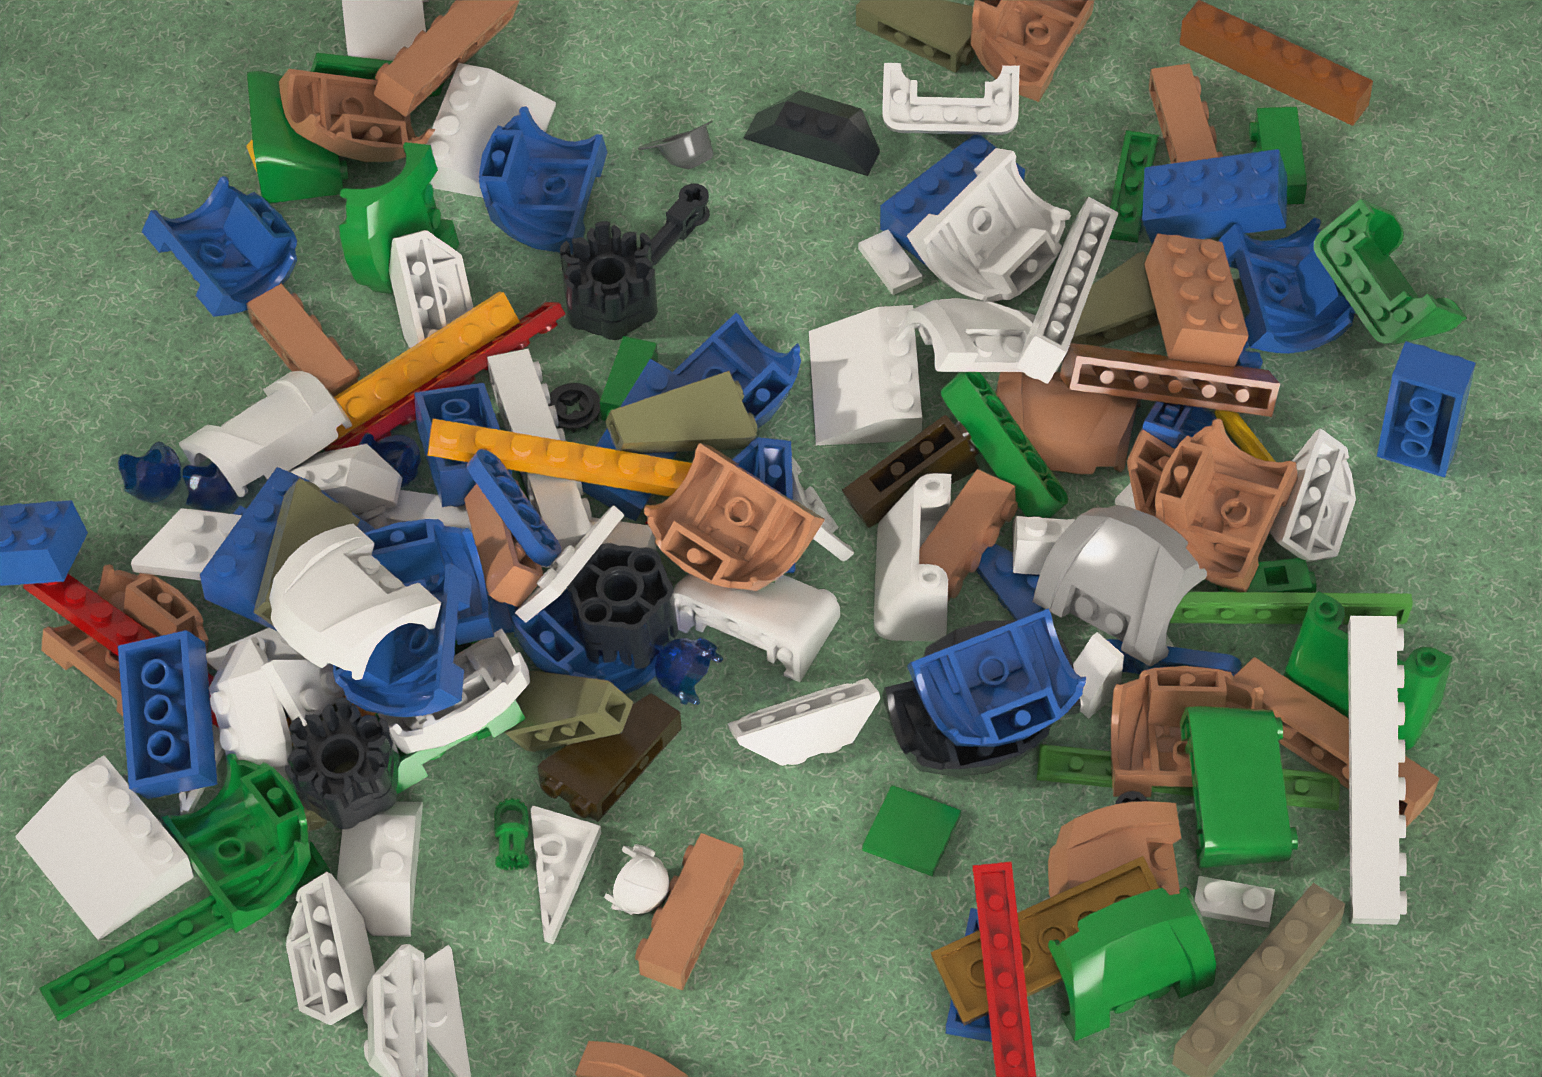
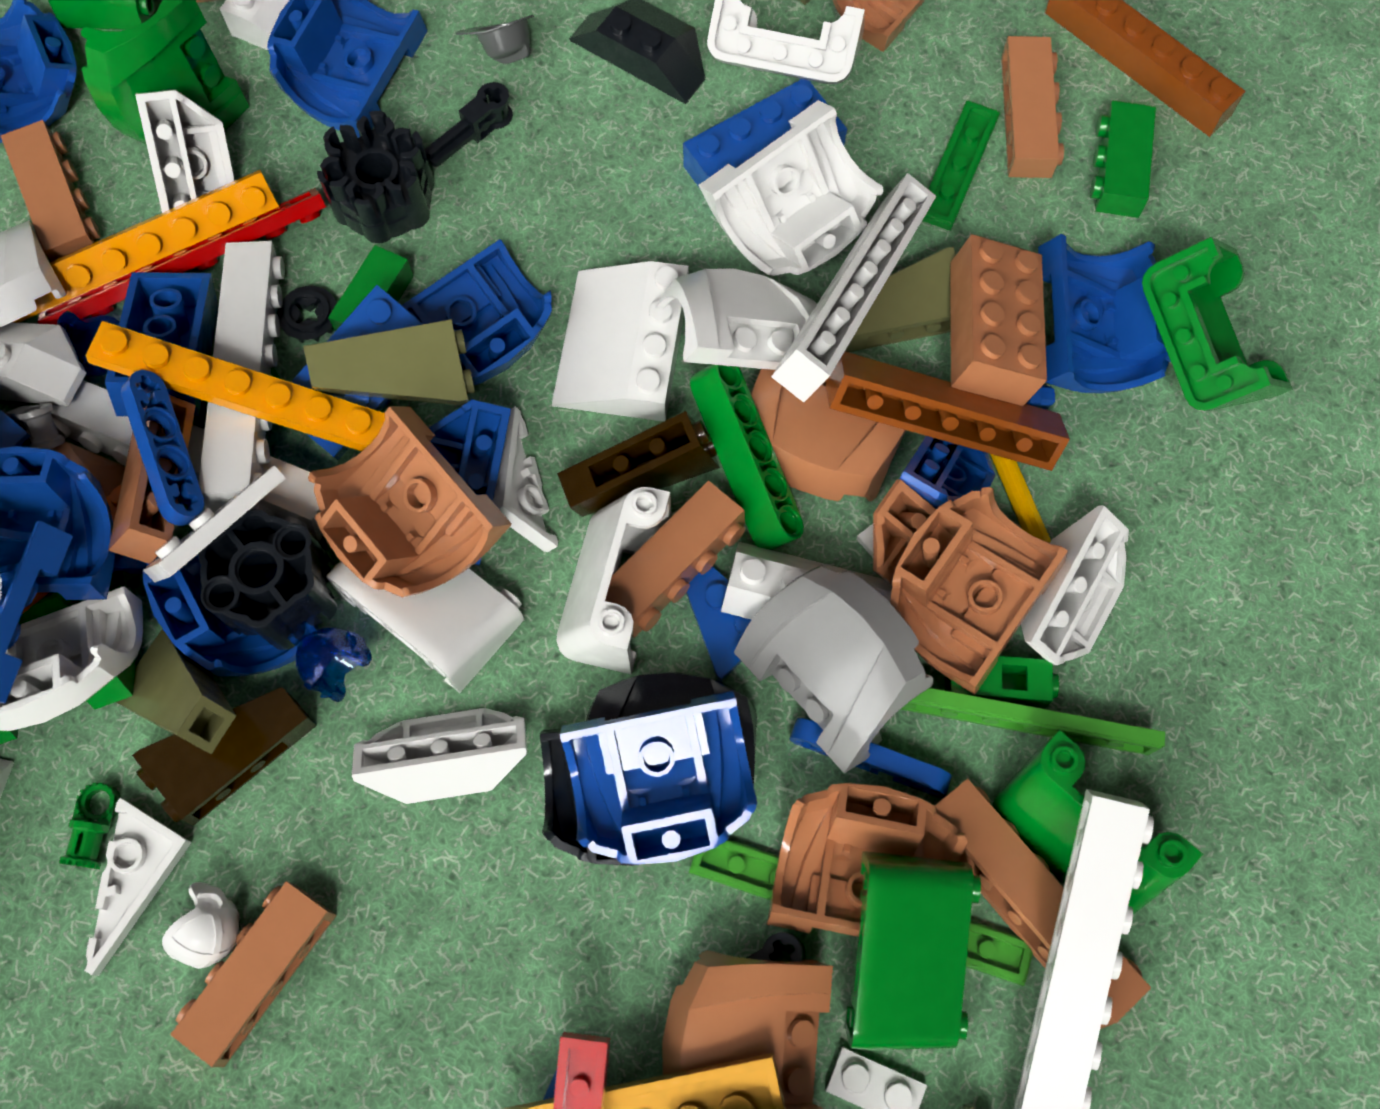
camera: 10 degrees right, 15 degrees up
(890, 262) = (683, 207): white plate -> none
(911, 830) = (532, 913): green tile -> none
(1103, 670) = (780, 766): white slope -> none
(1214, 193) = (1046, 195): blue brick -> none
(1425, 409) = (1235, 507): blue brick -> none

